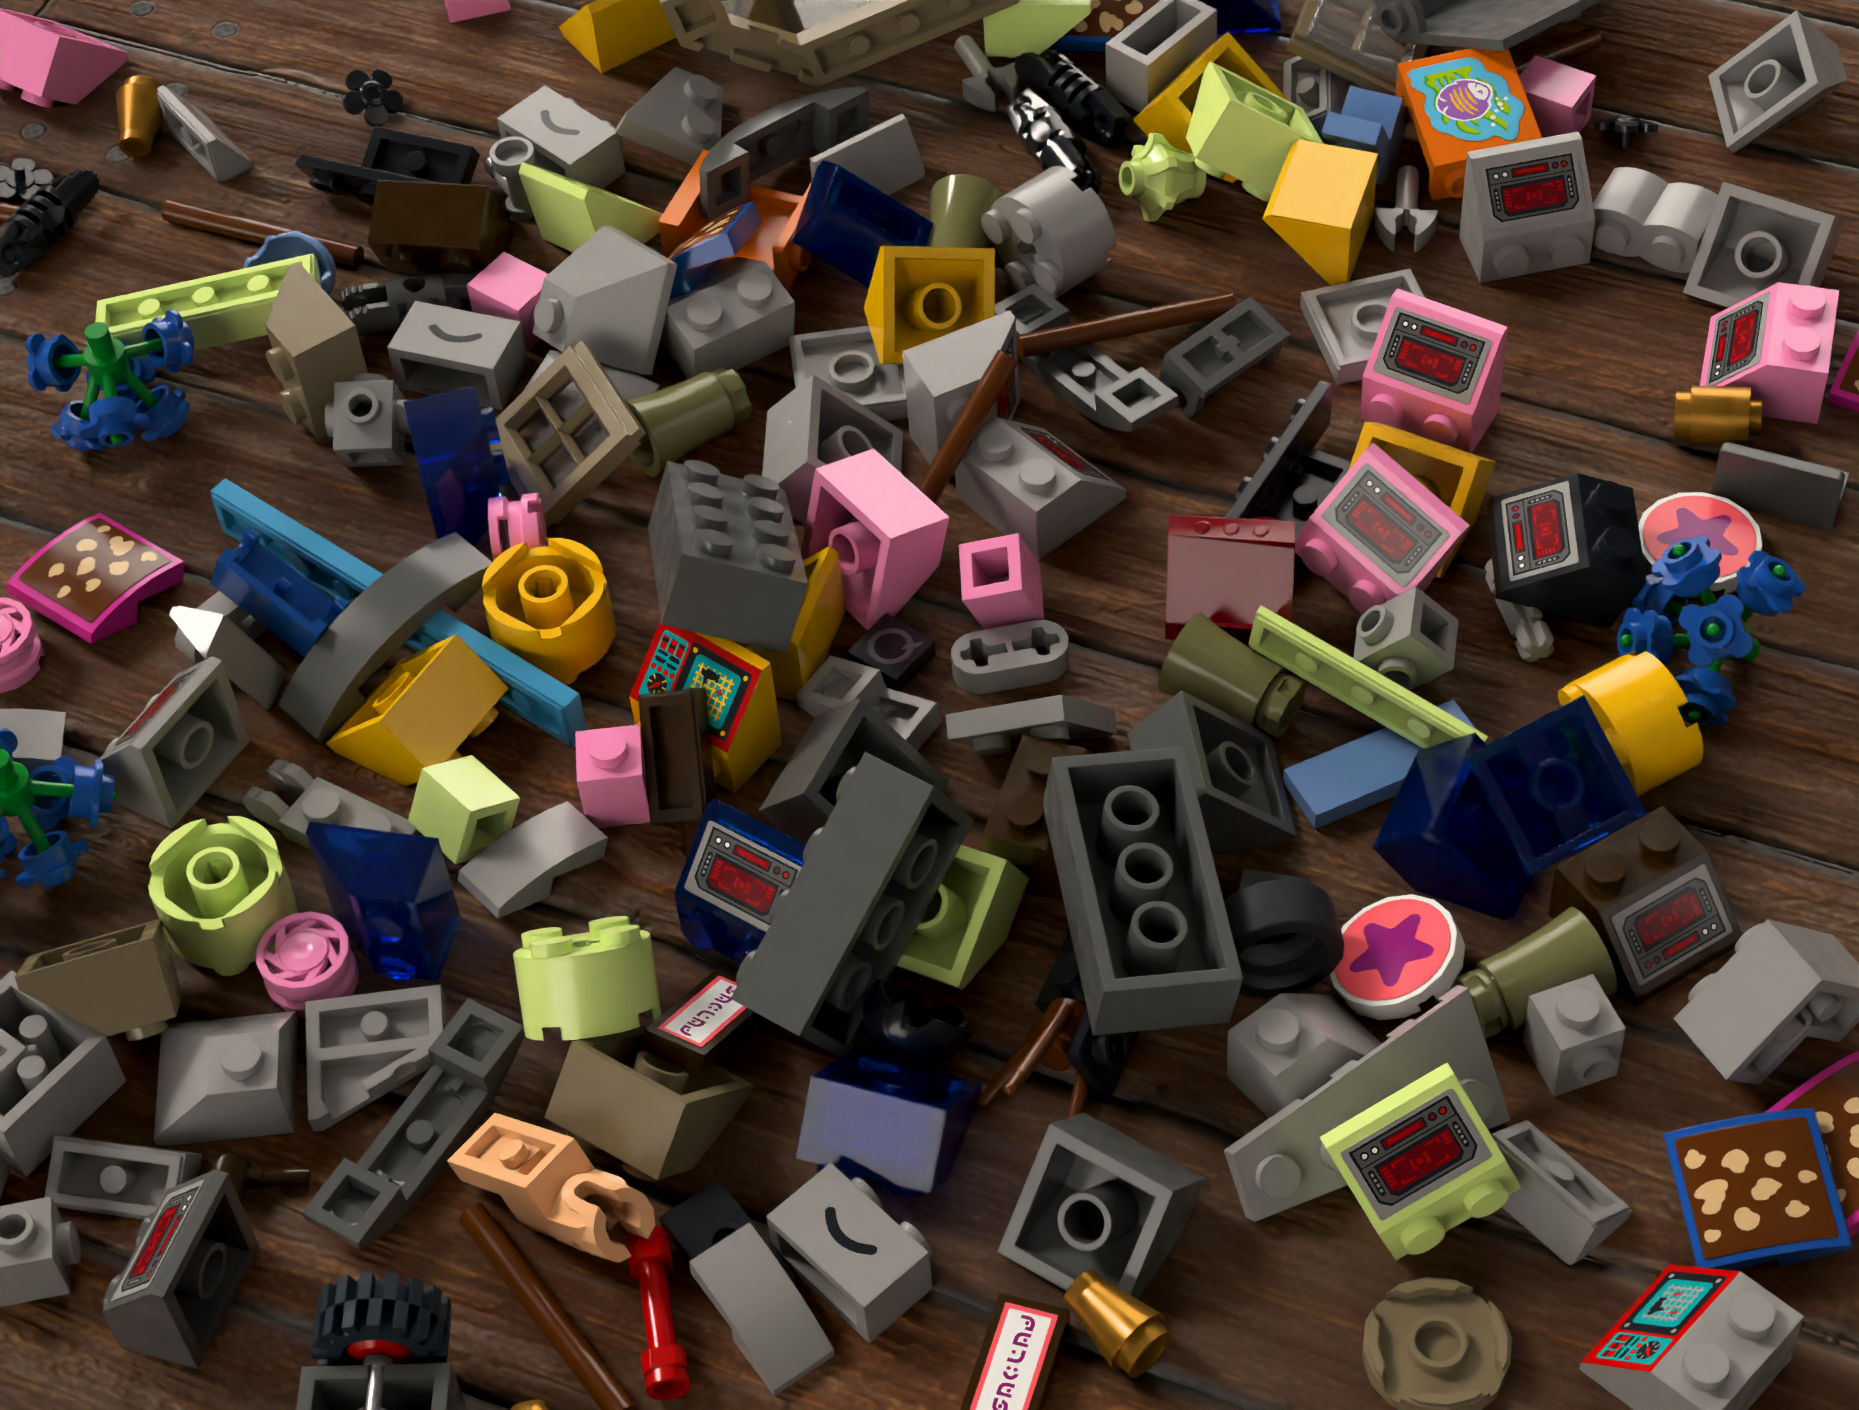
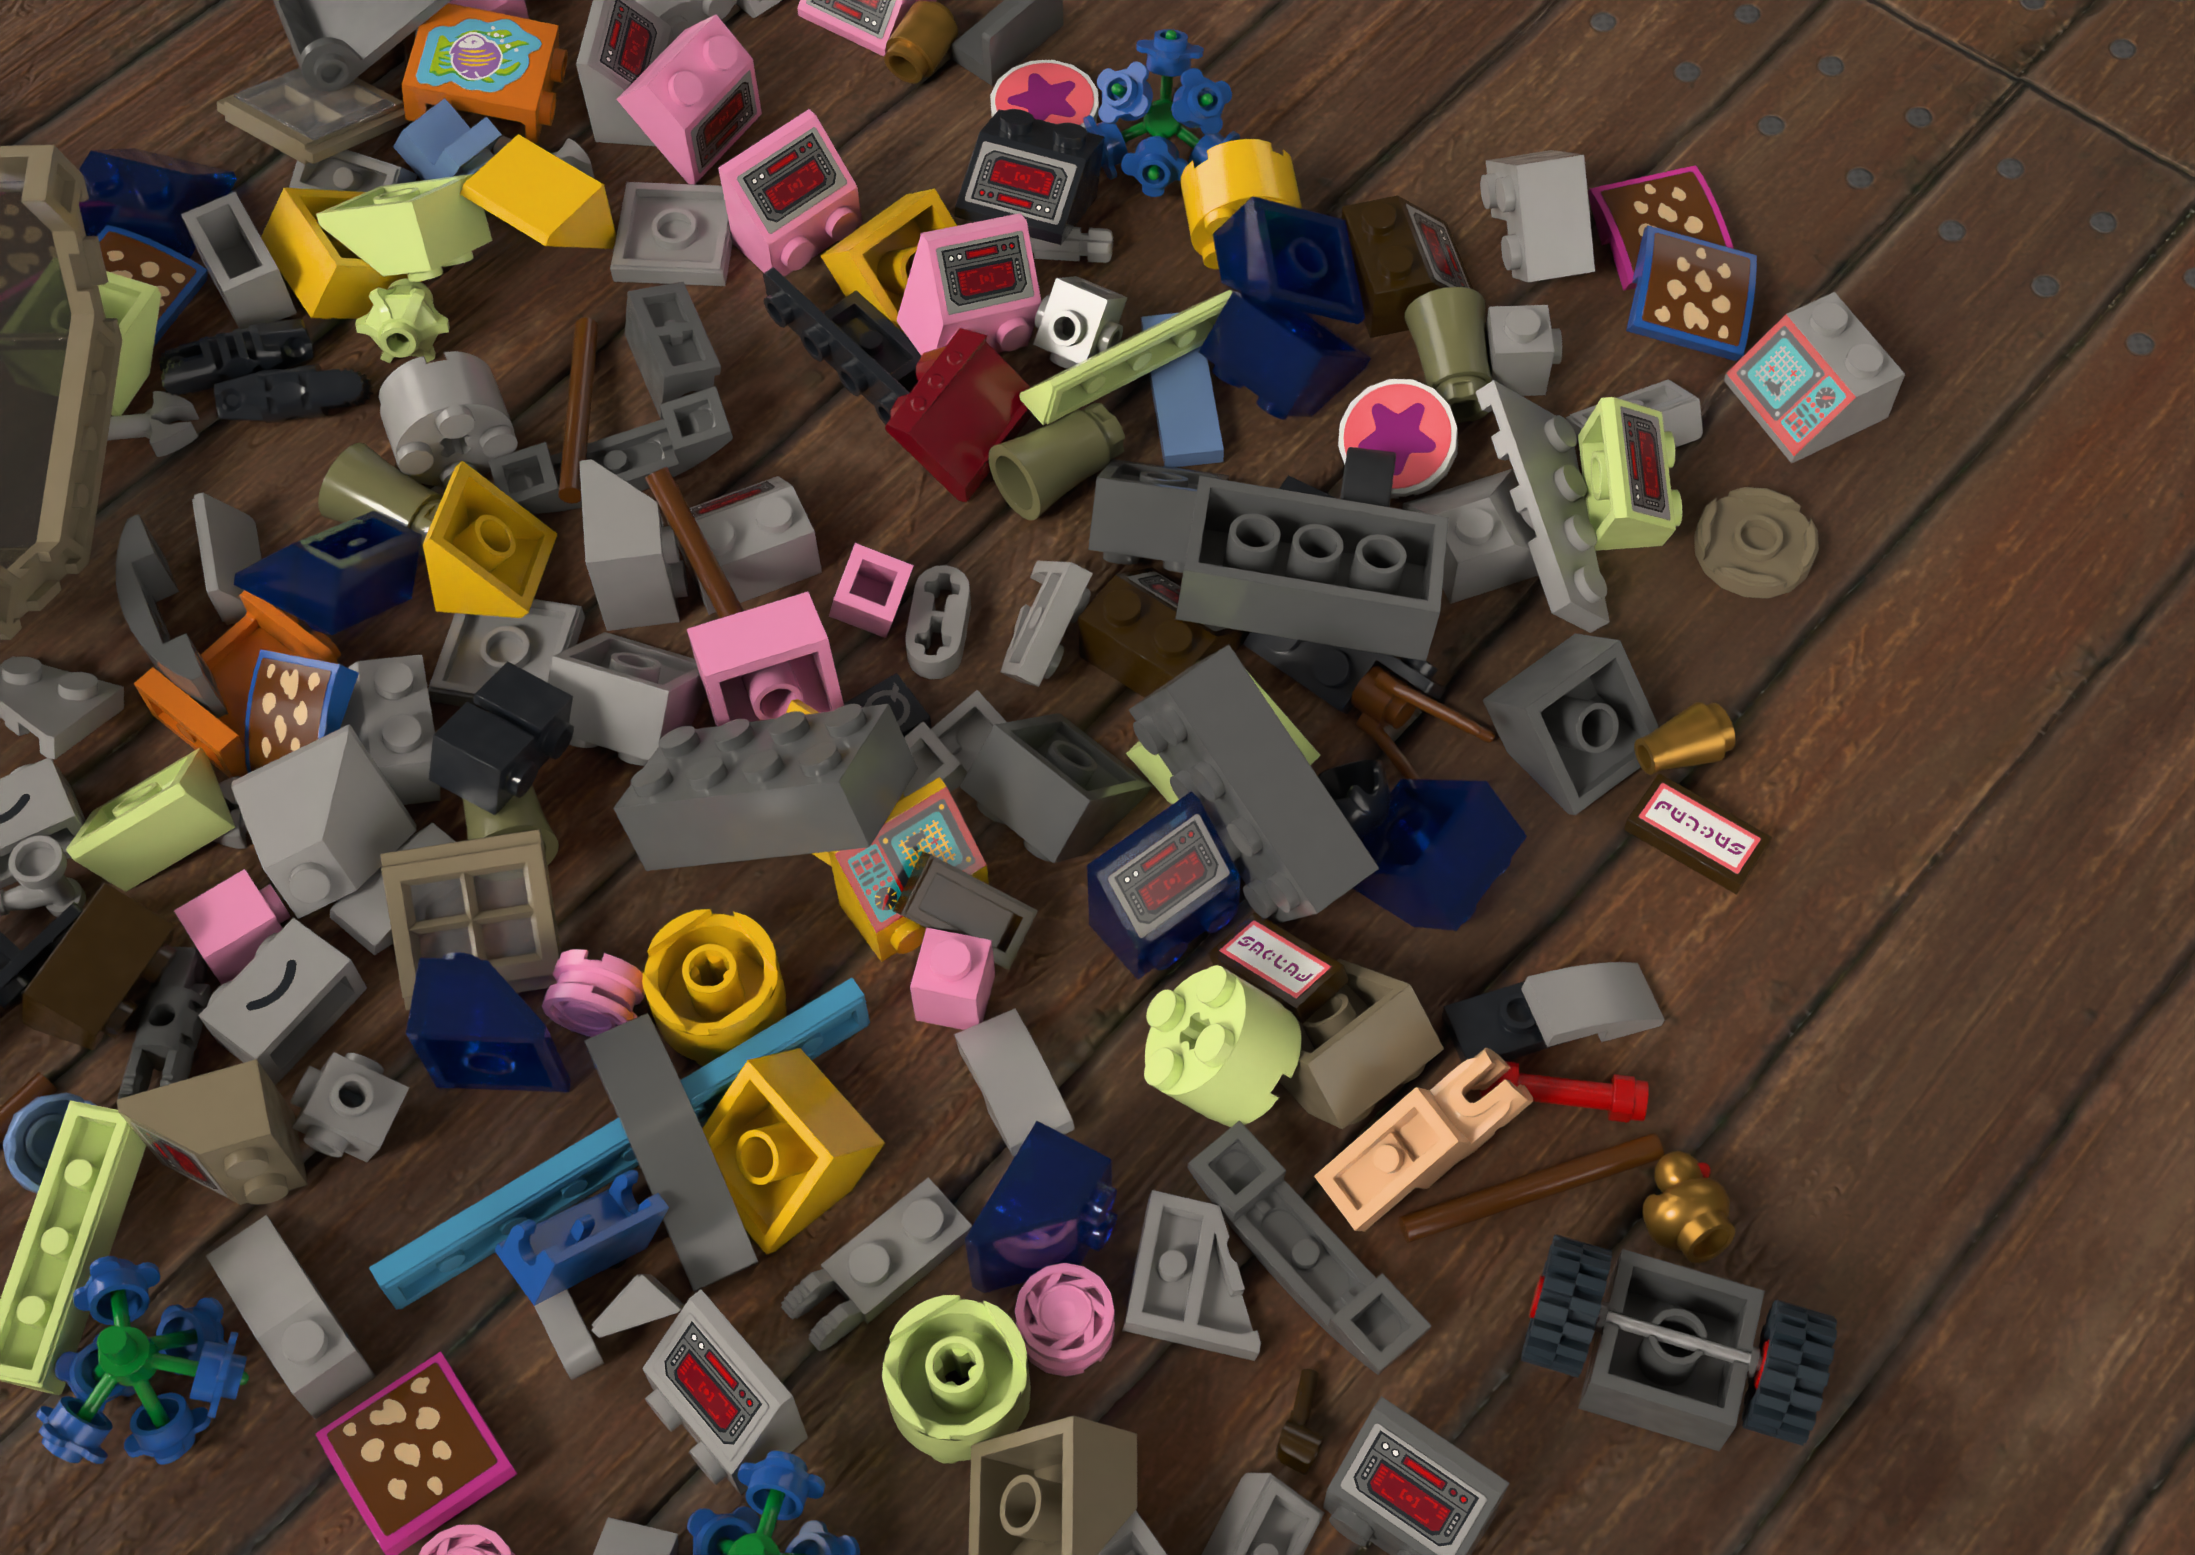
camera: 75 degrees left, 10 degrees up
(177, 464) = (290, 1318): none -> light grey slope
(227, 1079) = (1185, 1416): light grey slope -> none
(462, 807) = (937, 1125): yellowish green brick -> none
(747, 381) = (501, 750): none -> black piece
(852, 1251) = (1557, 915): light grey brick -> none
(1511, 266) = (696, 97): none -> bright pink slope

